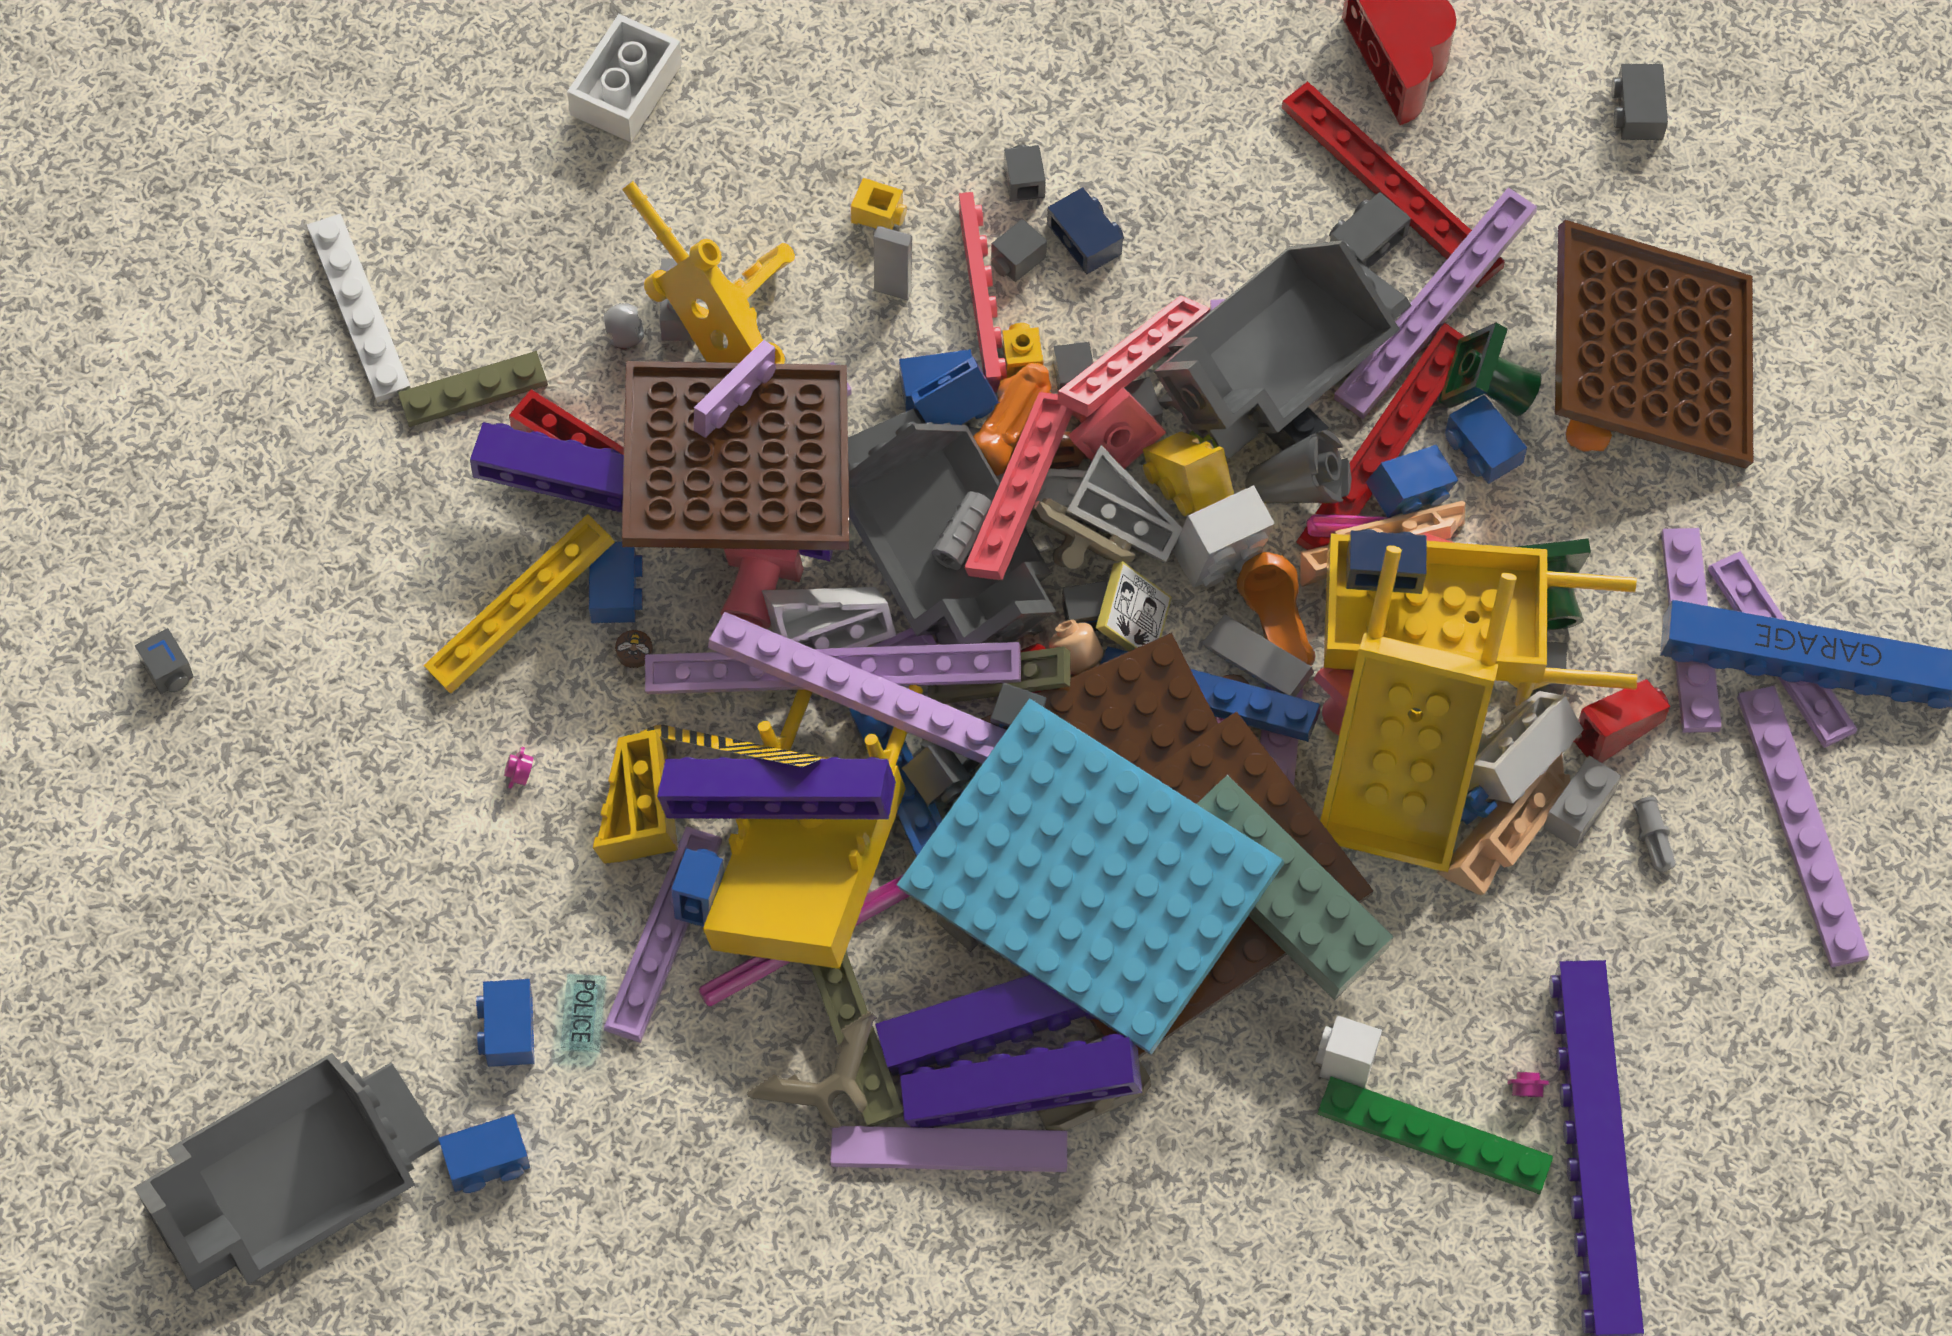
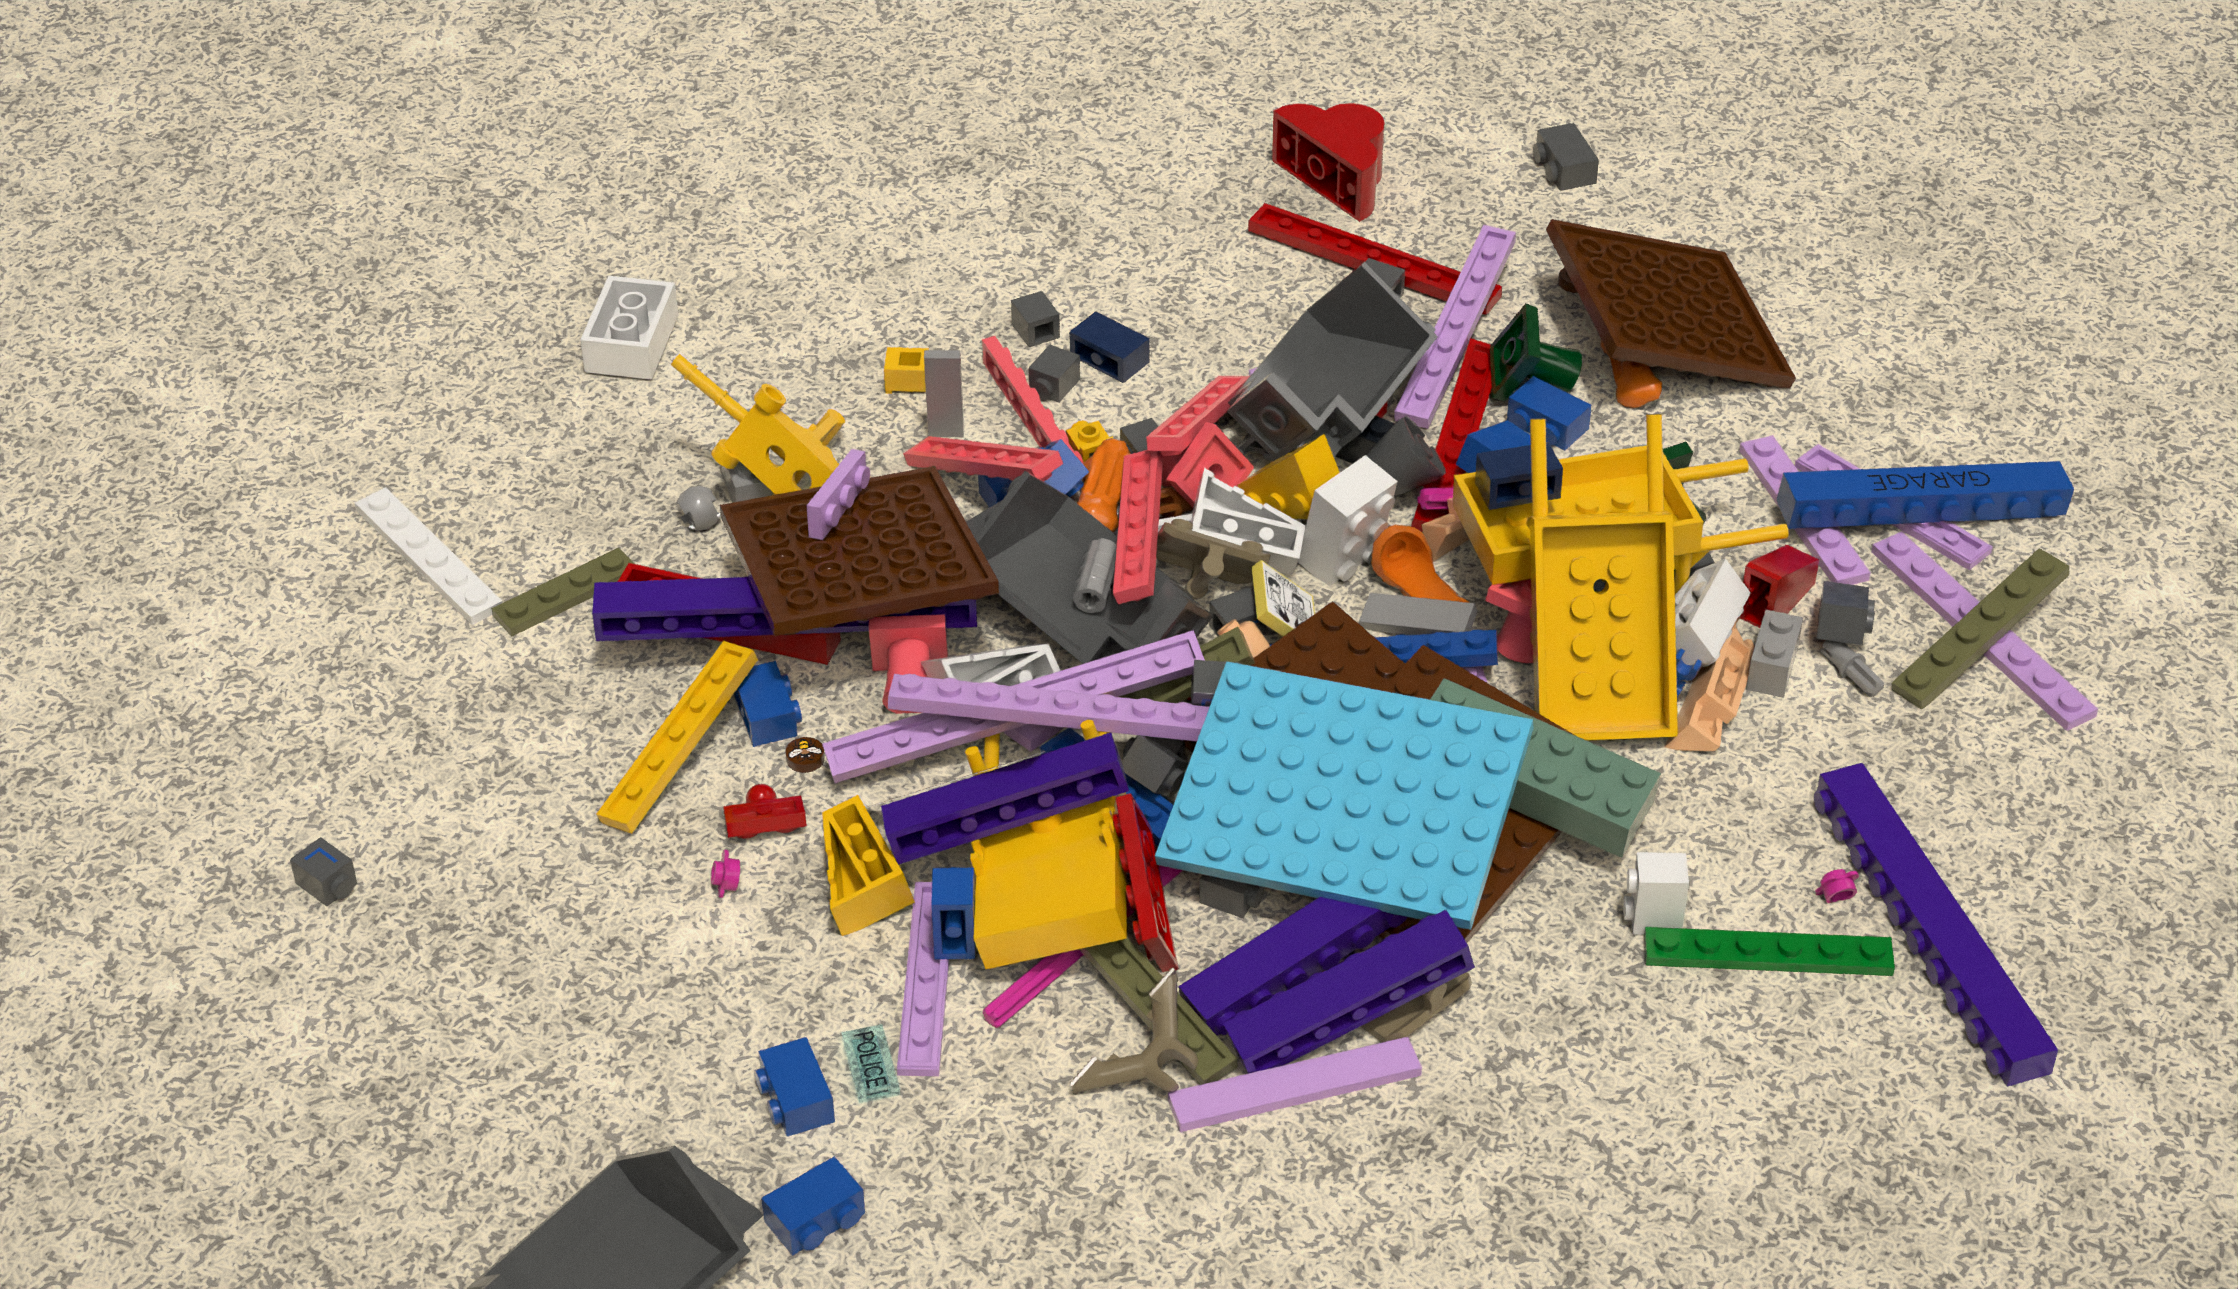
camera: 15 degrees left, 20 degrees down
(574, 710) = (764, 813): none -> red plate
(881, 909) = (1146, 889): none -> red plate
(902, 359) = (983, 458): none -> coral plate
(1667, 776) = (1845, 613): none -> dark grey brick
(1794, 832) = (1980, 628): none -> olive plate

